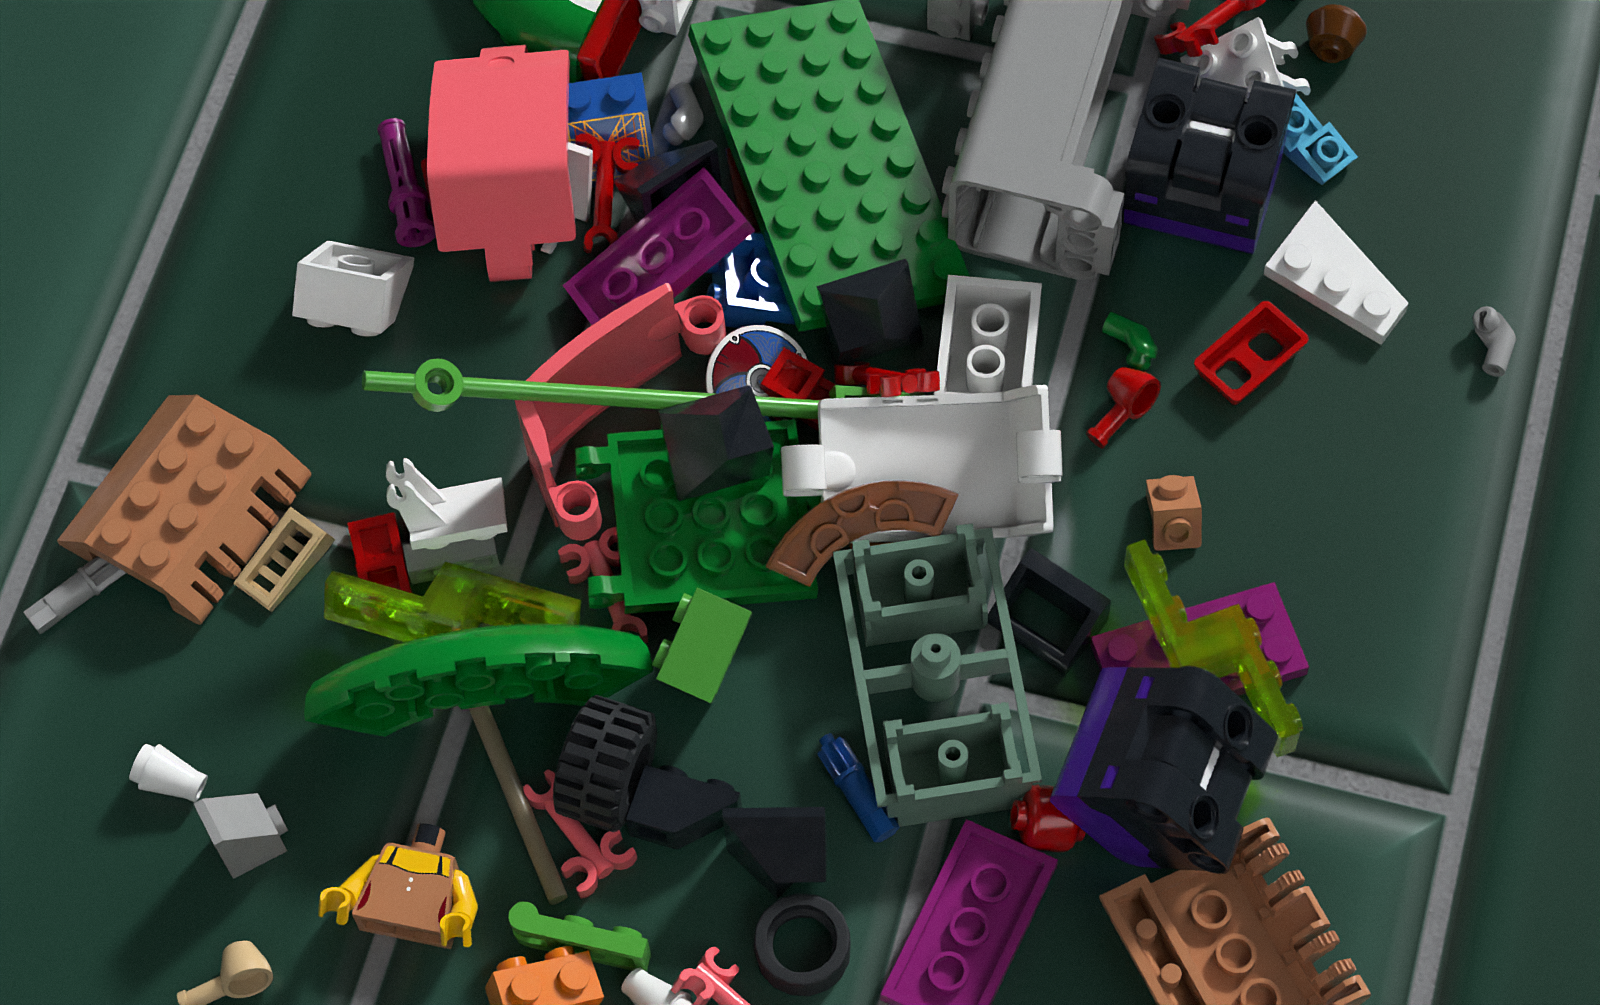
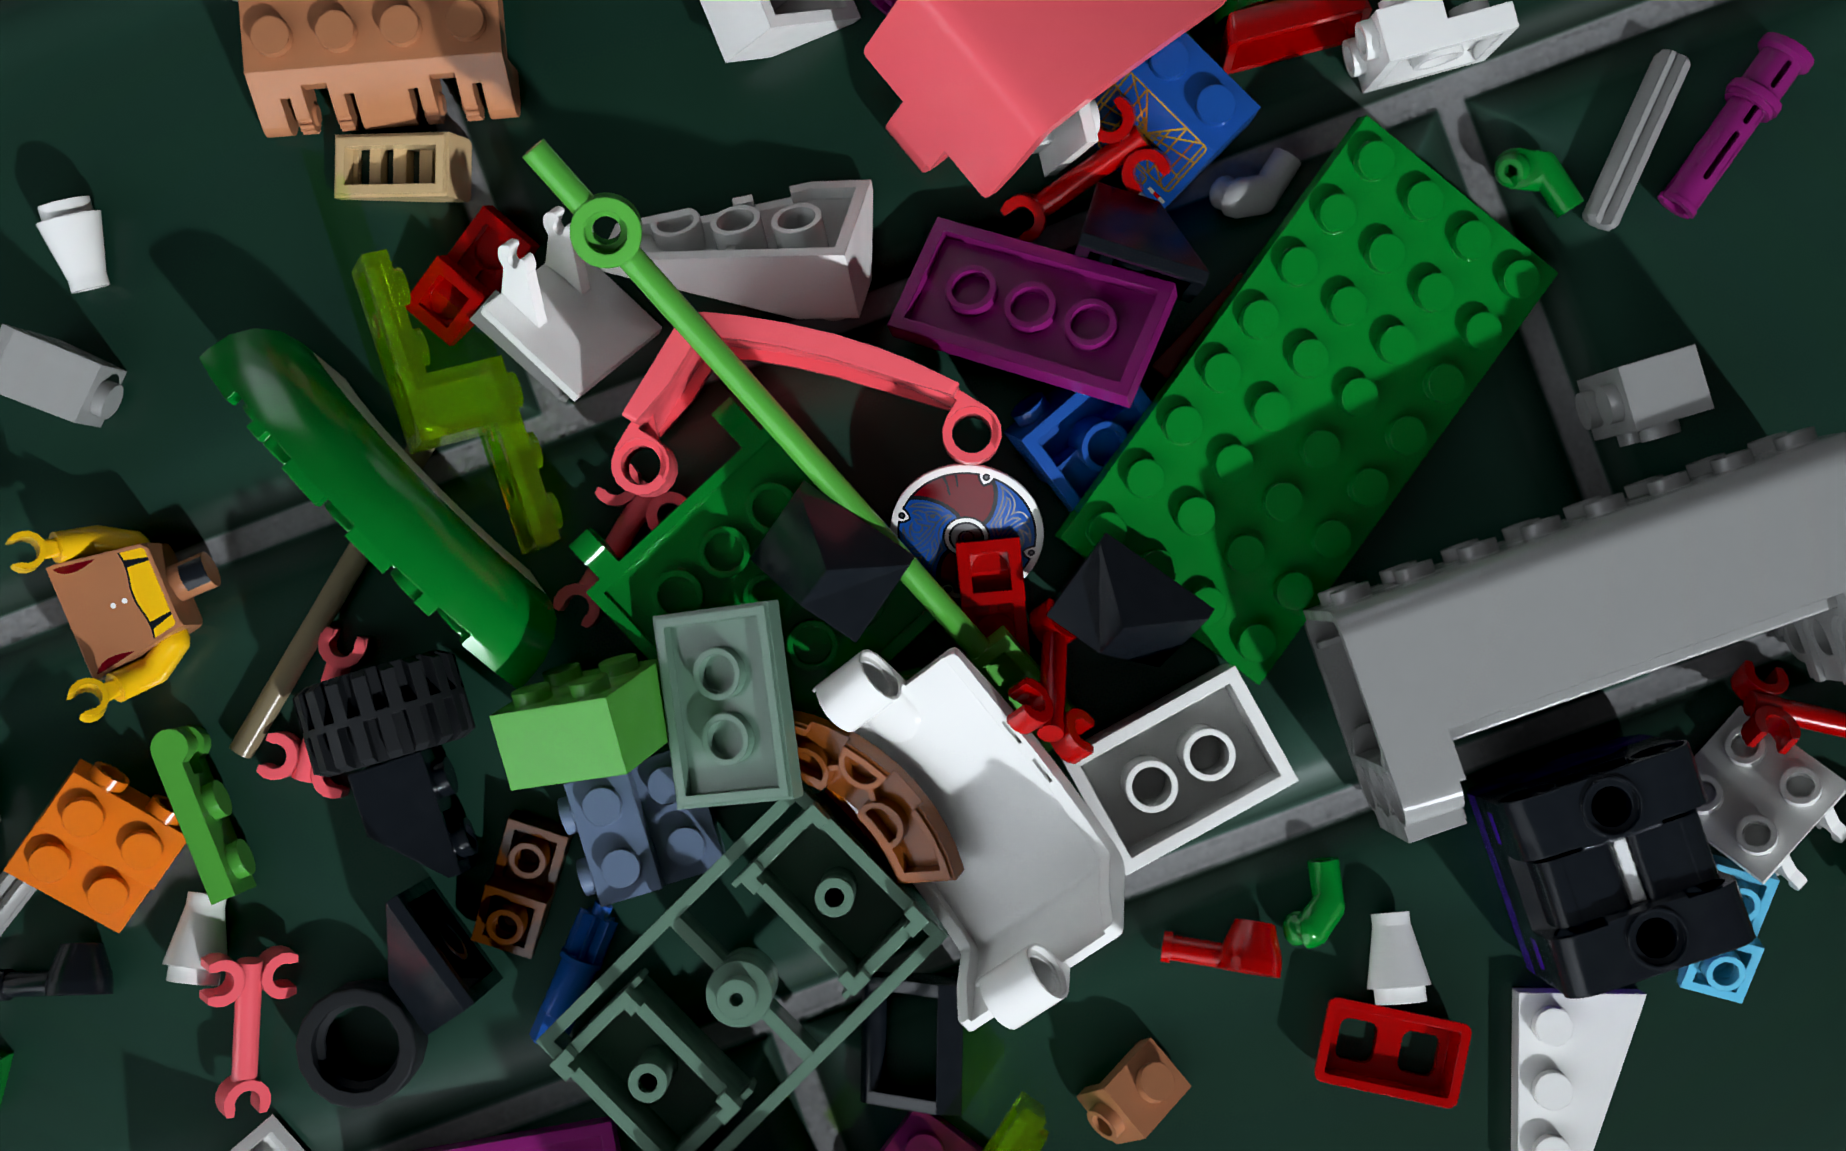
camera: 50 degrees right, 25 degrees up
(510, 353) = (778, 256): none -> white wedge
(756, 560) = (728, 705): none -> sand green tile
(771, 774) = (522, 884): none -> reddish brown slope
(793, 684) = (635, 833): none -> sand blue plate
(1197, 317) = (1395, 961): none -> white cone

